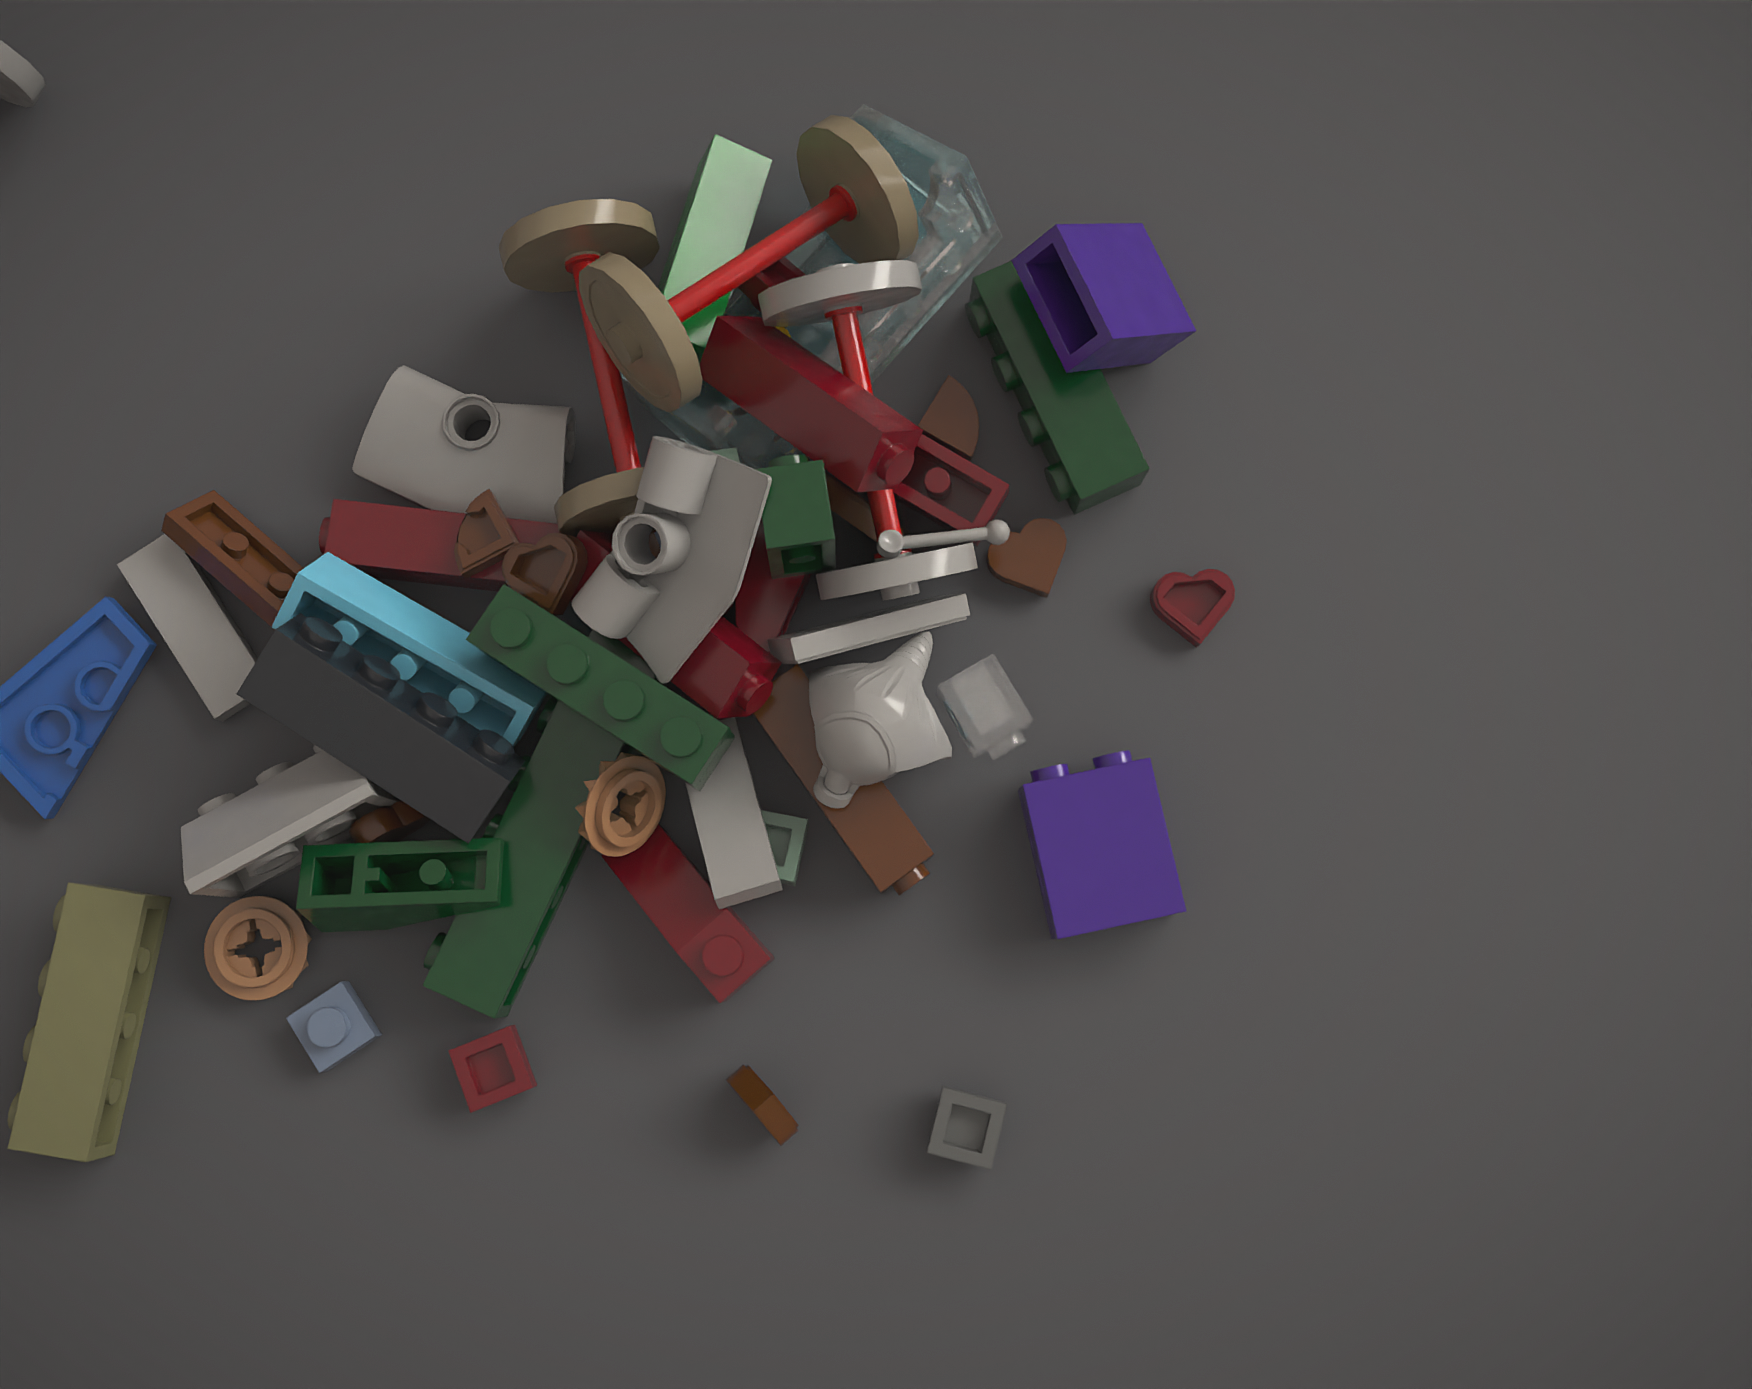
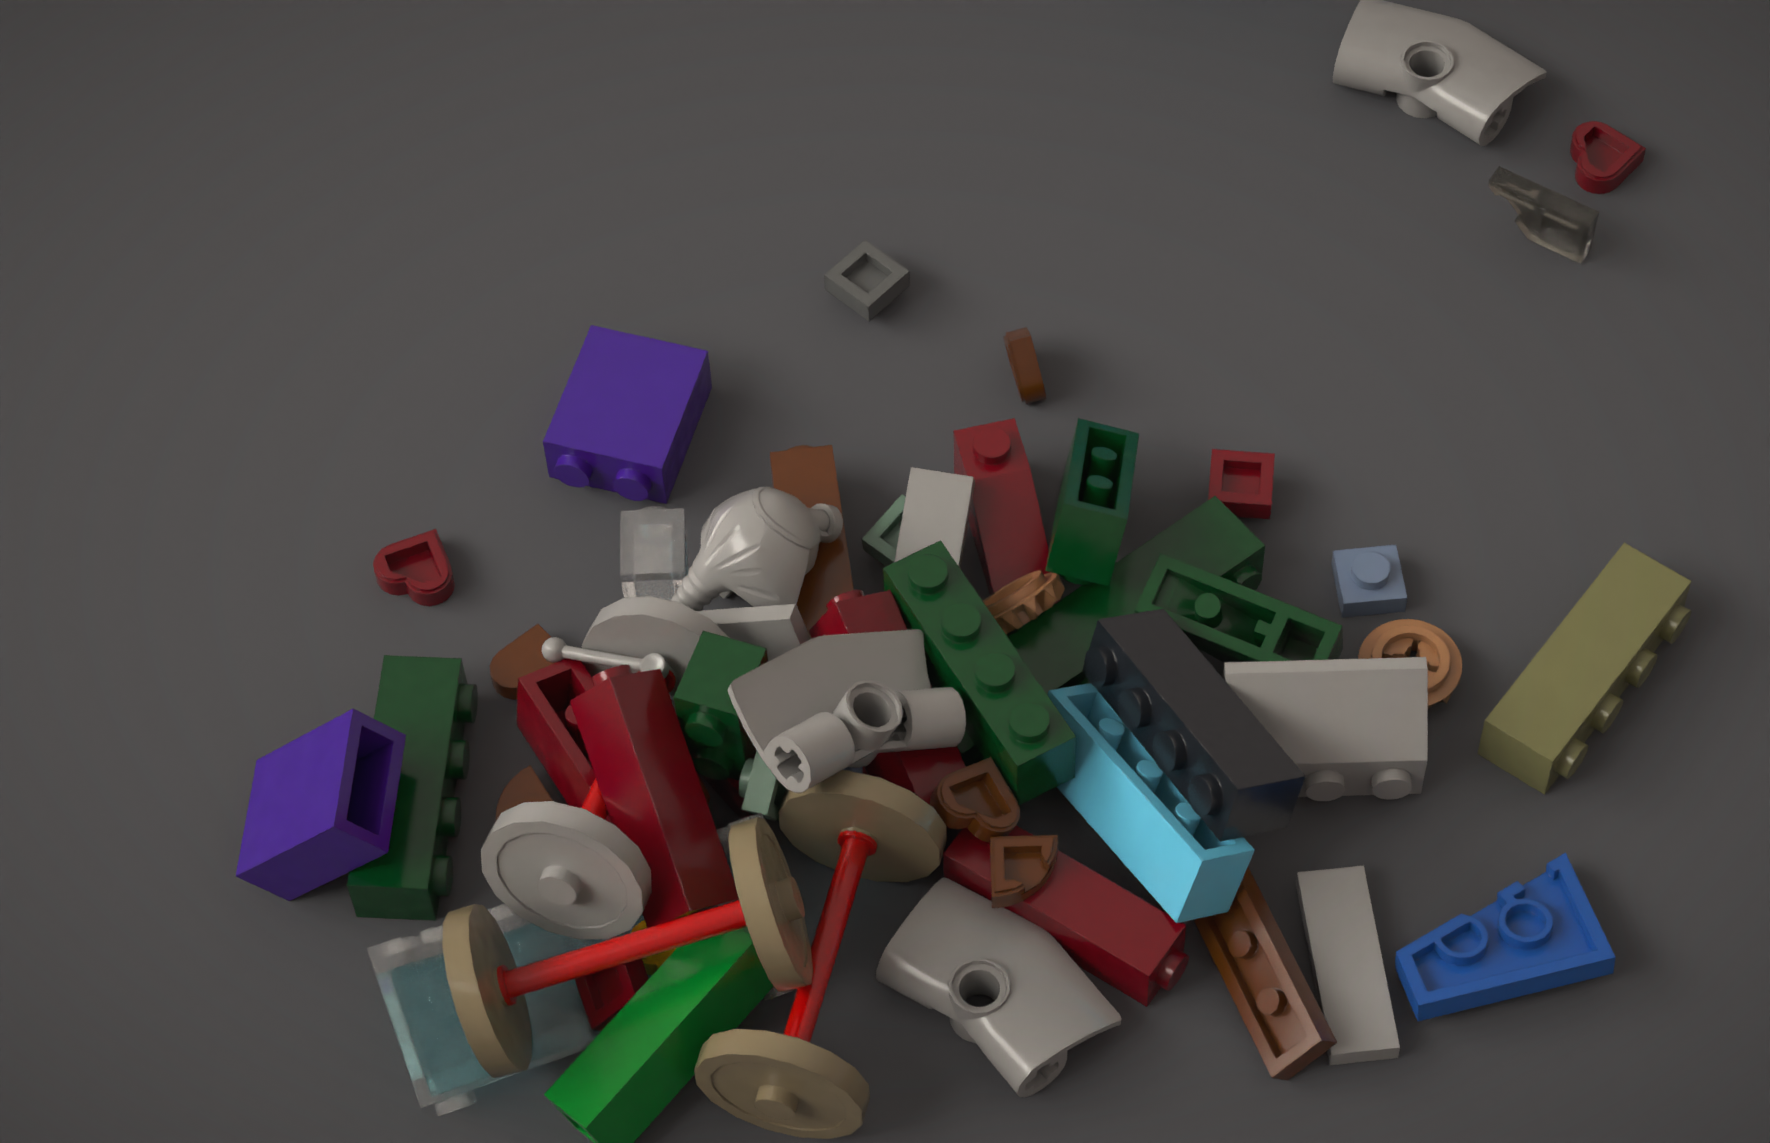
camera: 150 degrees left, 25 degrees down
(595, 940) = (1093, 503): none -> dark green brick

